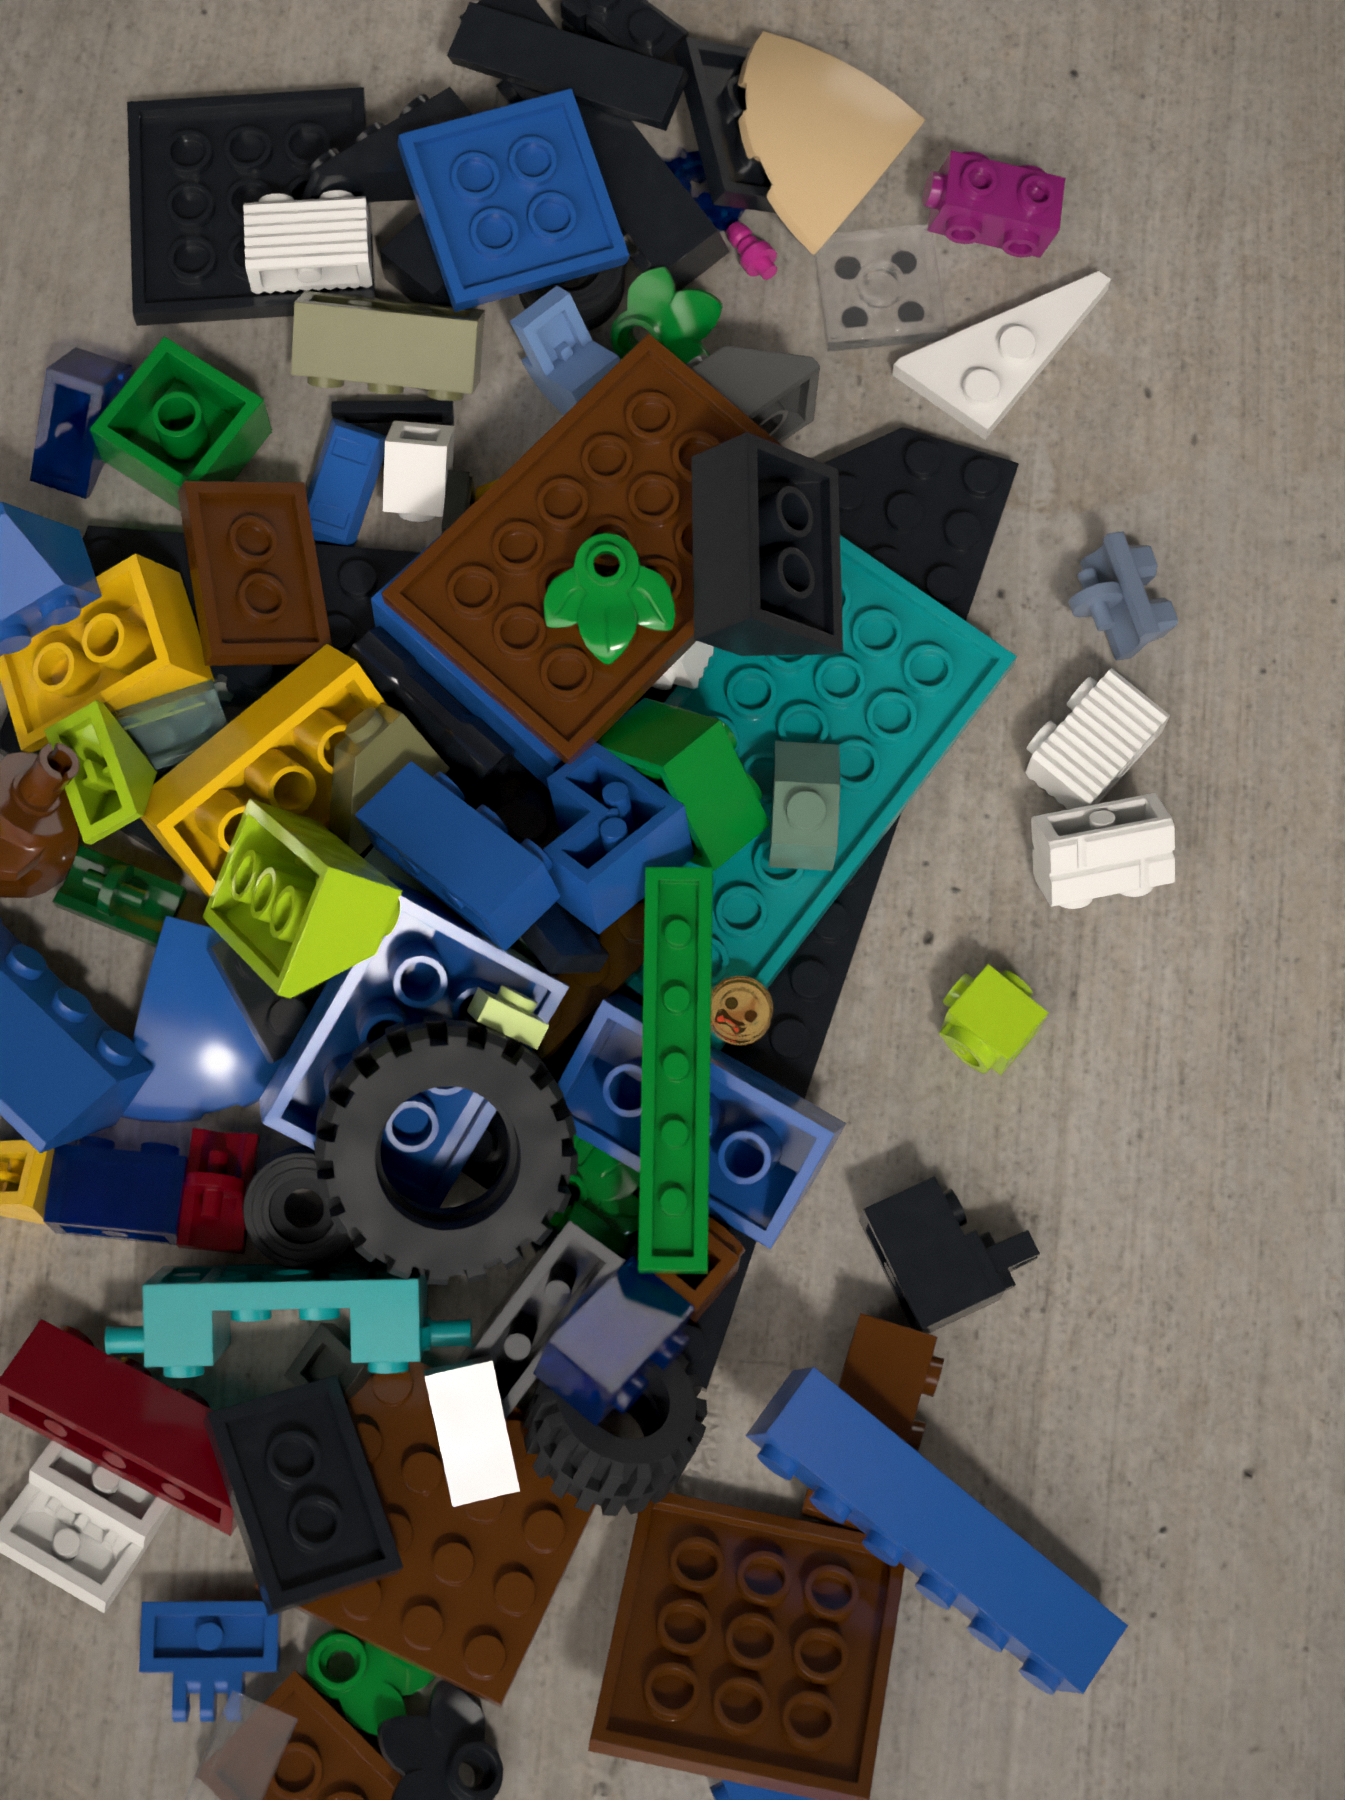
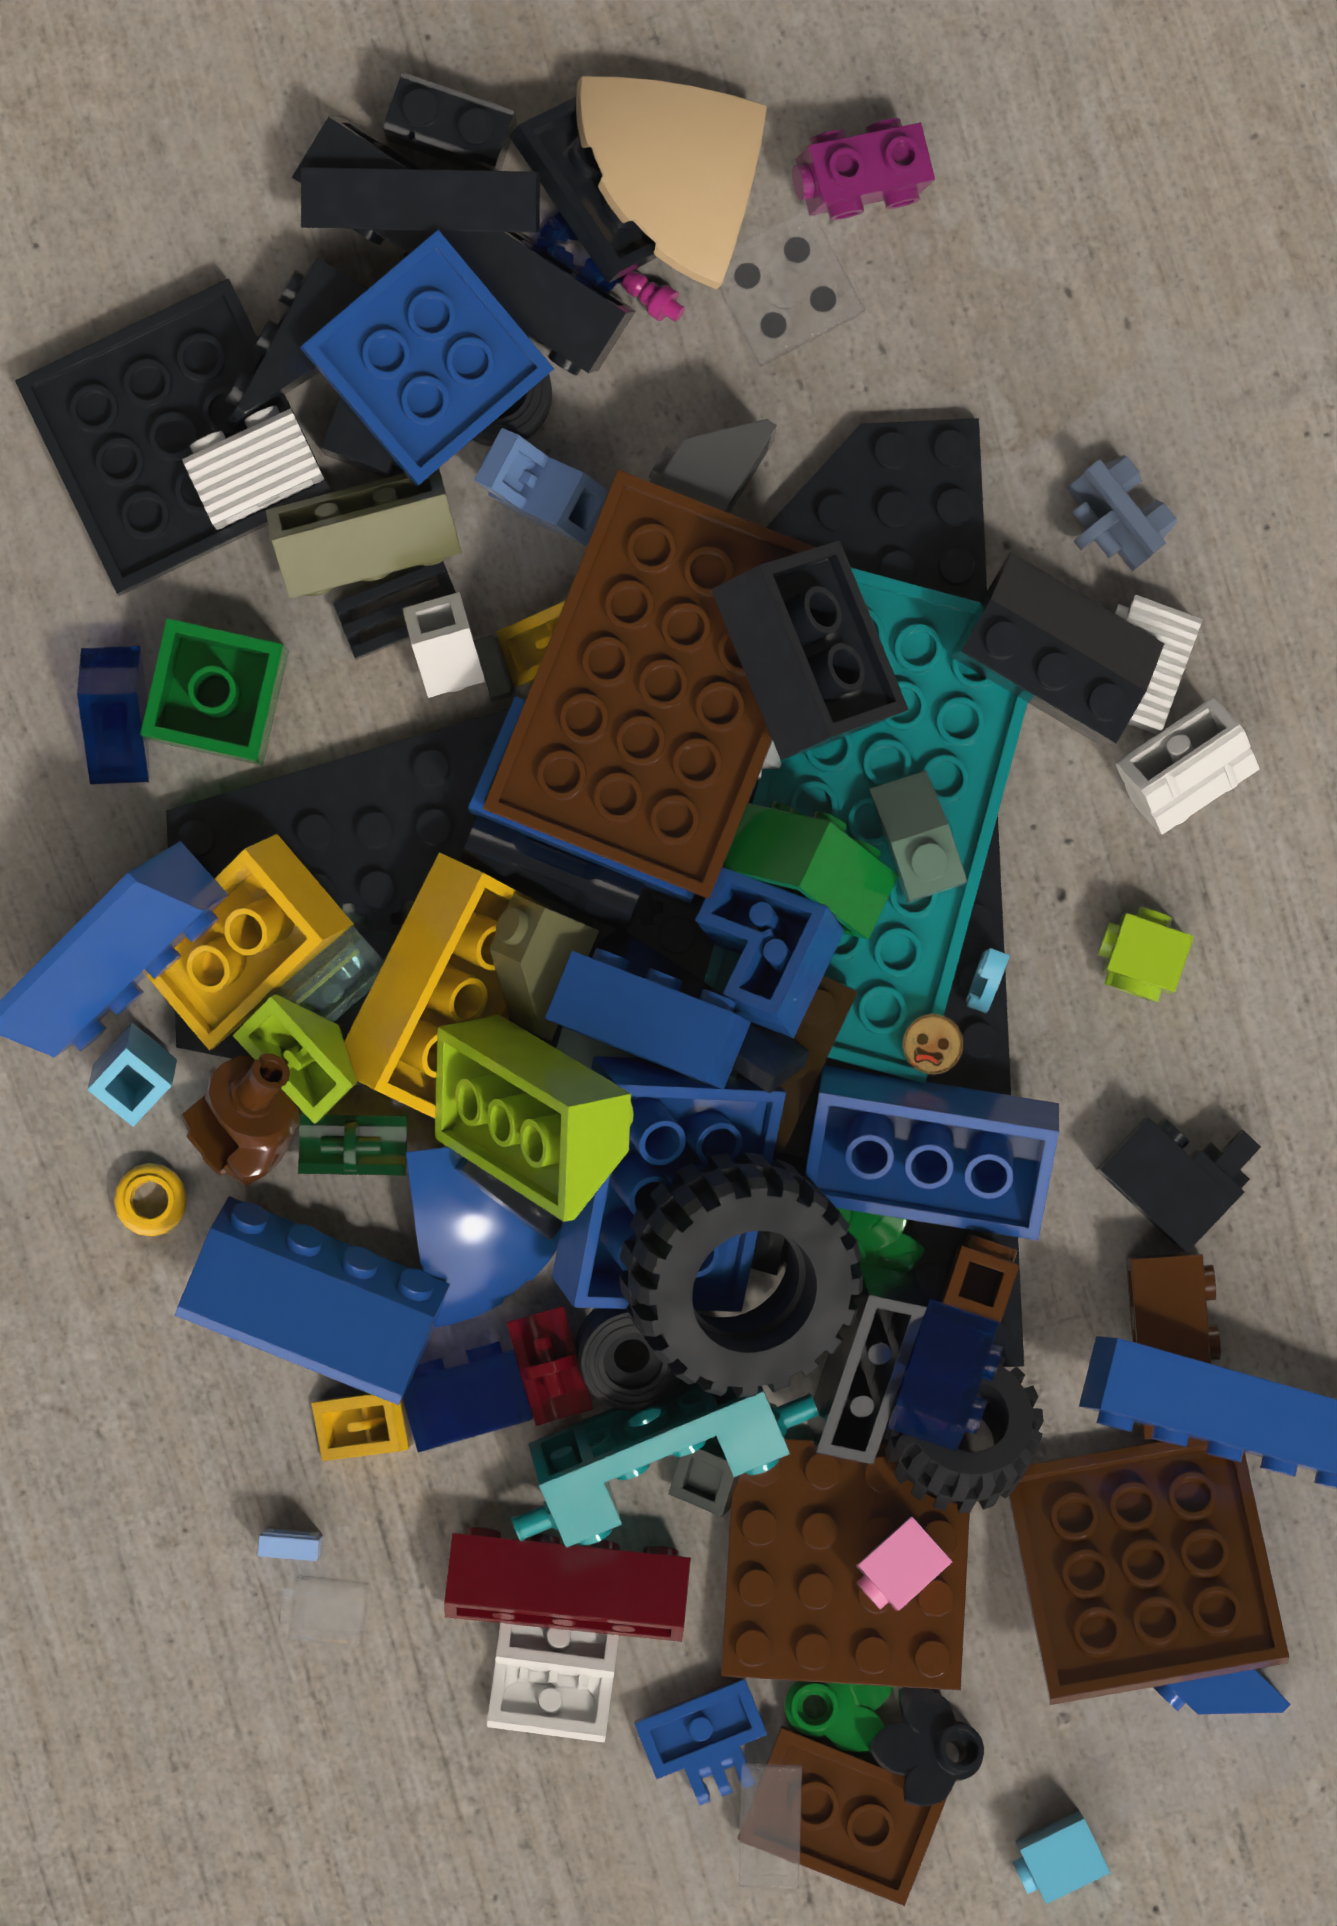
camera: 20 degrees left, 15 degrees up
(253, 572) = (346, 810): reddish brown plate -> none
(302, 1494) = (735, 1594): black plate -> none
(344, 482) = (377, 681): blue tile -> none
(471, 1430) = (850, 1487): tile -> none
(491, 1536) = (901, 1566): none -> bright pink brick
(509, 1014) = (749, 1144): yellowish green plate -> none
(609, 606) = (693, 749): green plate -> none
(670, 316) = (613, 410): green plate -> none
(676, 1071) = (907, 1132): green plate -> none
(830, 965) = (986, 979): none -> medium azure tile
(991, 364) = (916, 325): white wing -> none
(1011, 680) = (1059, 651): none -> black slope

